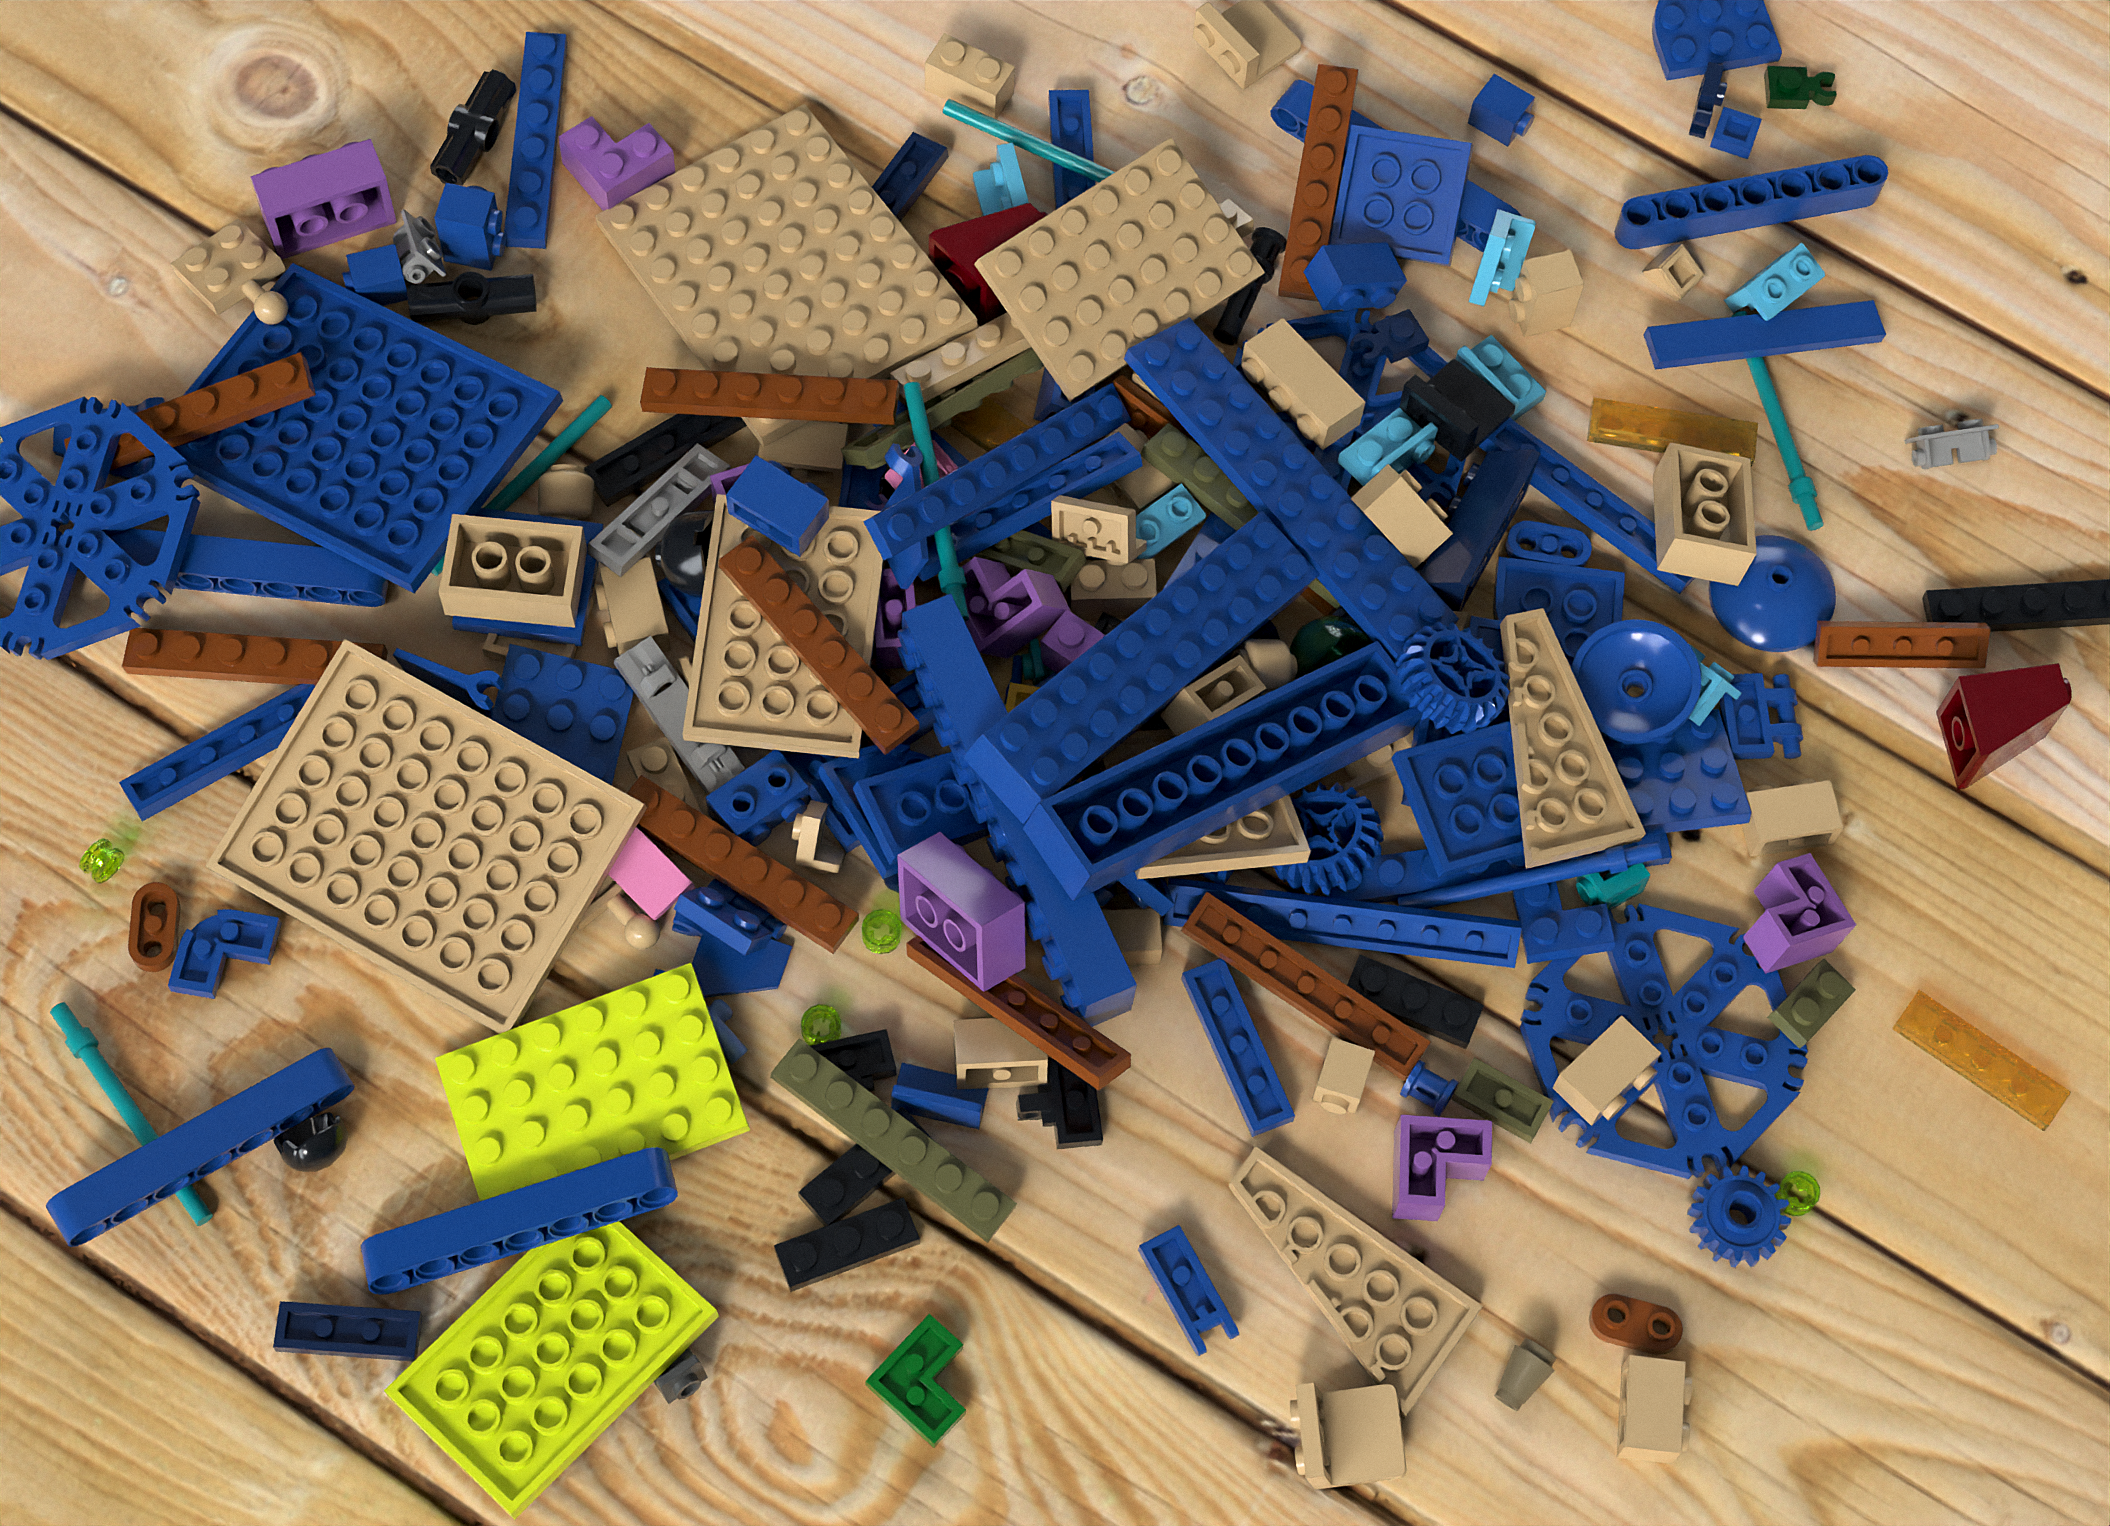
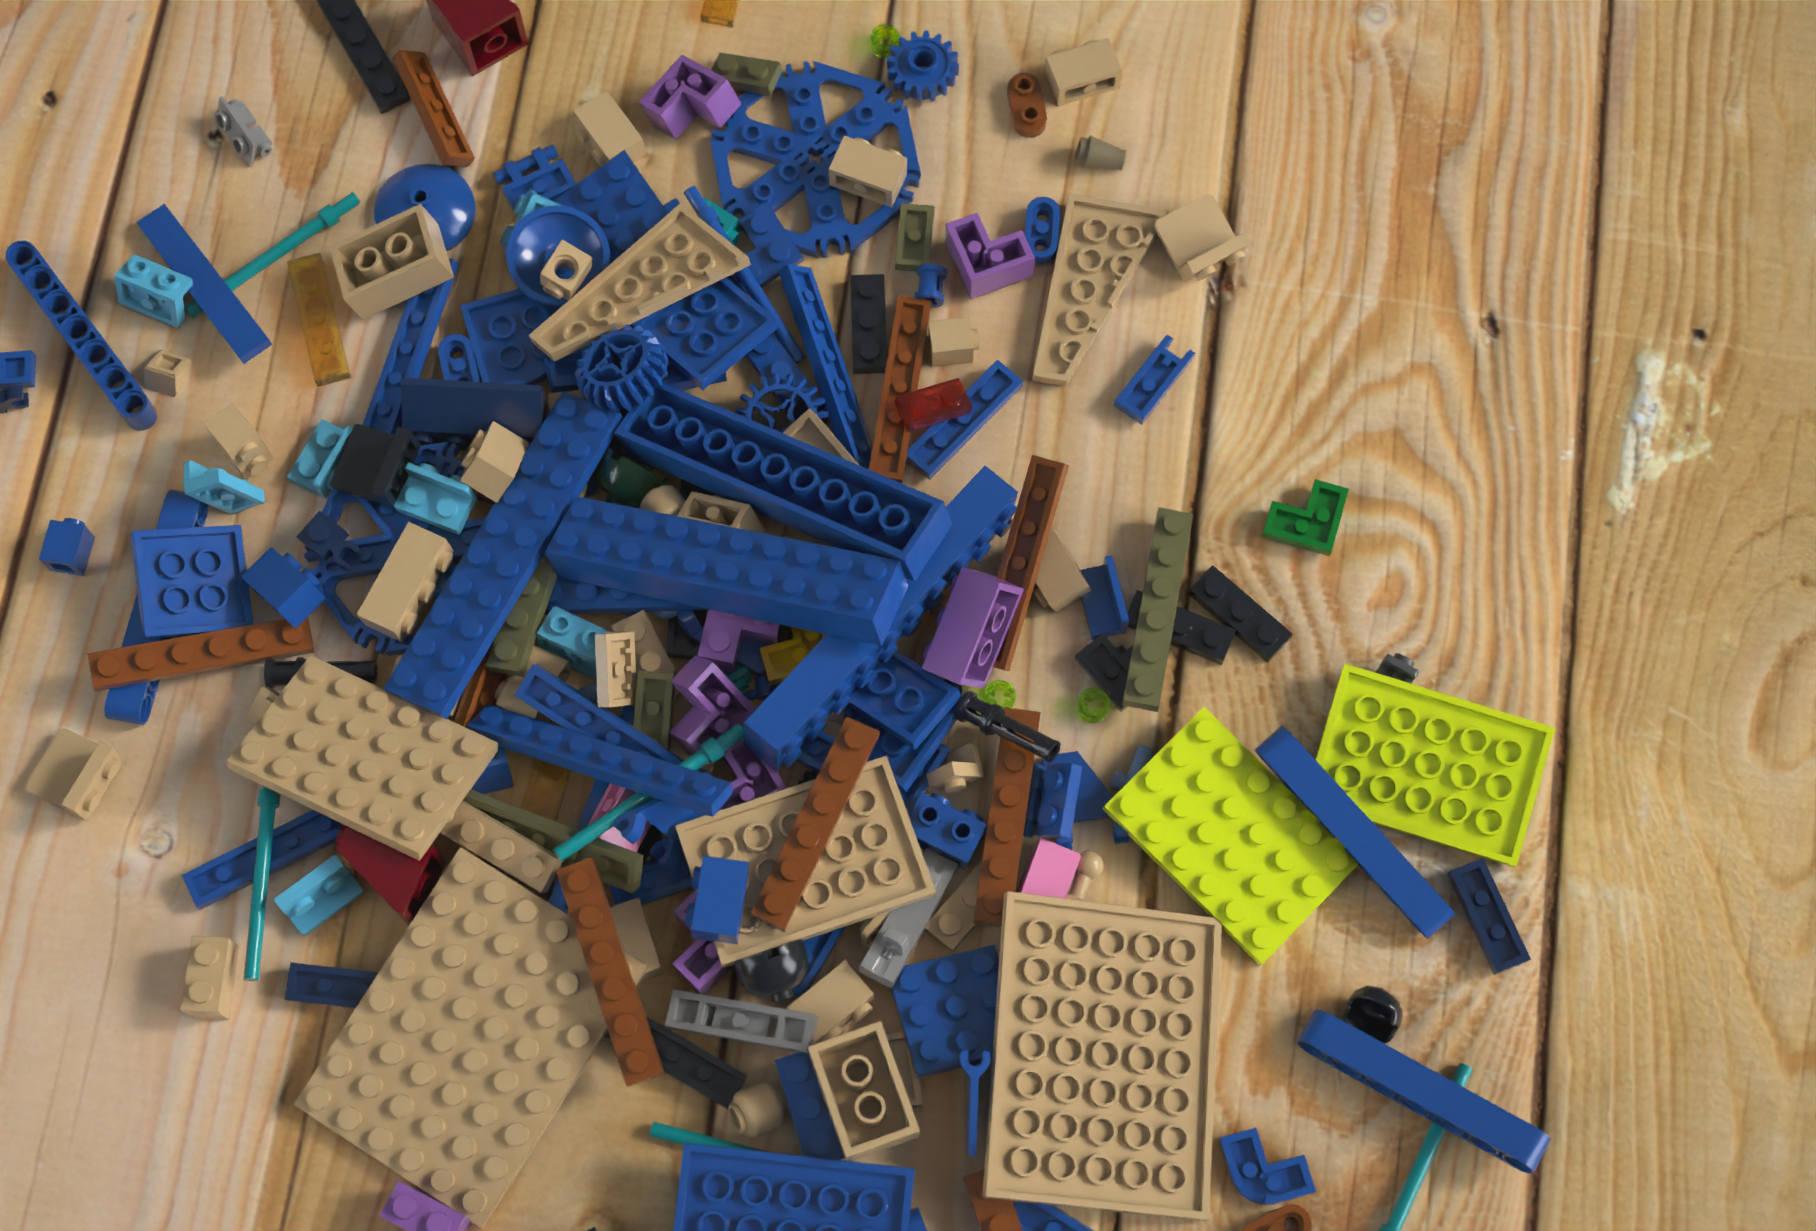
camera: 110 degrees left, 5 degrees up
(844, 887) = (994, 716): none -> black pin
(1067, 1105) = (1074, 503): black hinge -> none
(1264, 1007) = (933, 404): none -> clear red plate
(1450, 1250) = (1042, 232): none -> blue plate
(1610, 687) = (565, 257): none -> tan brick

